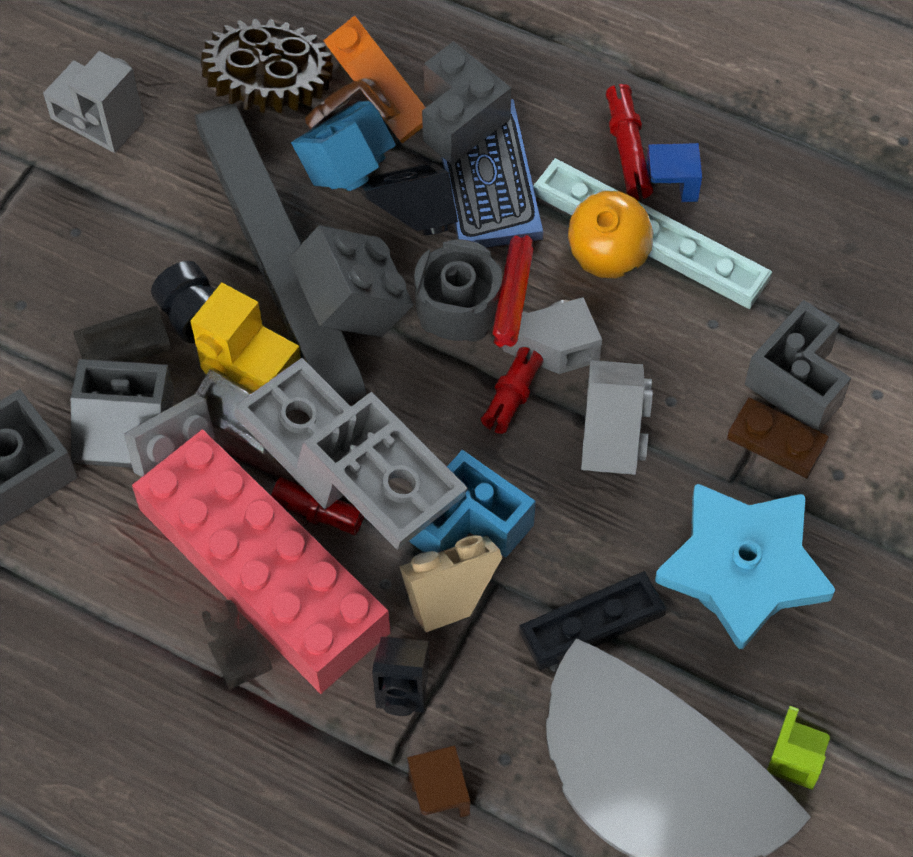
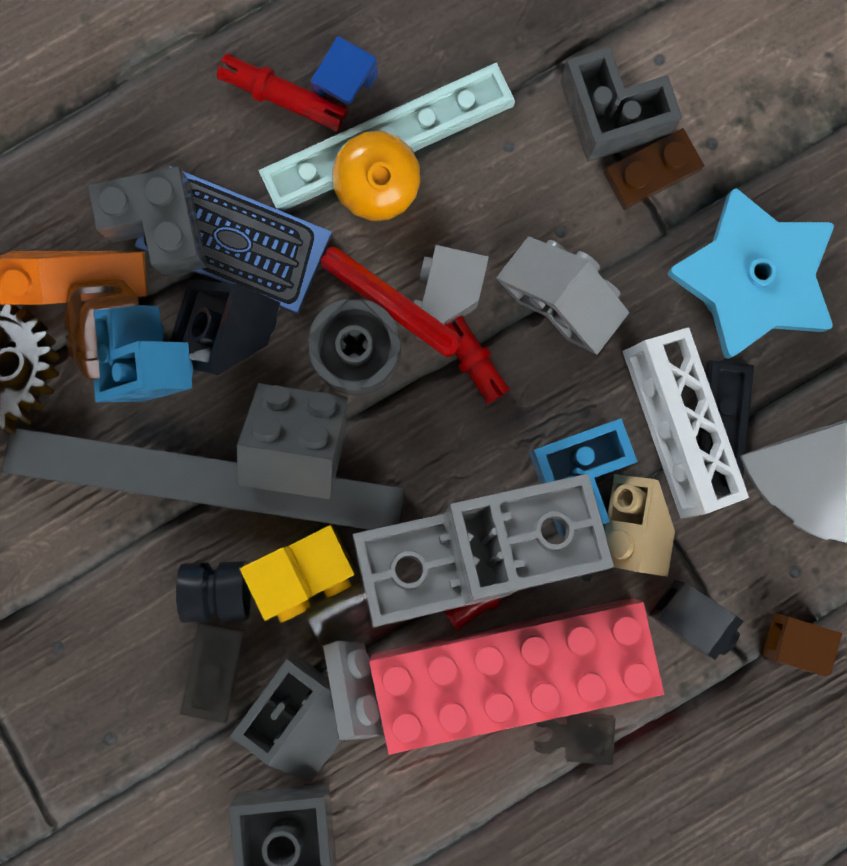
camera: 60 degrees left, 25 degrees up
(558, 568) = (674, 436): none -> white fence

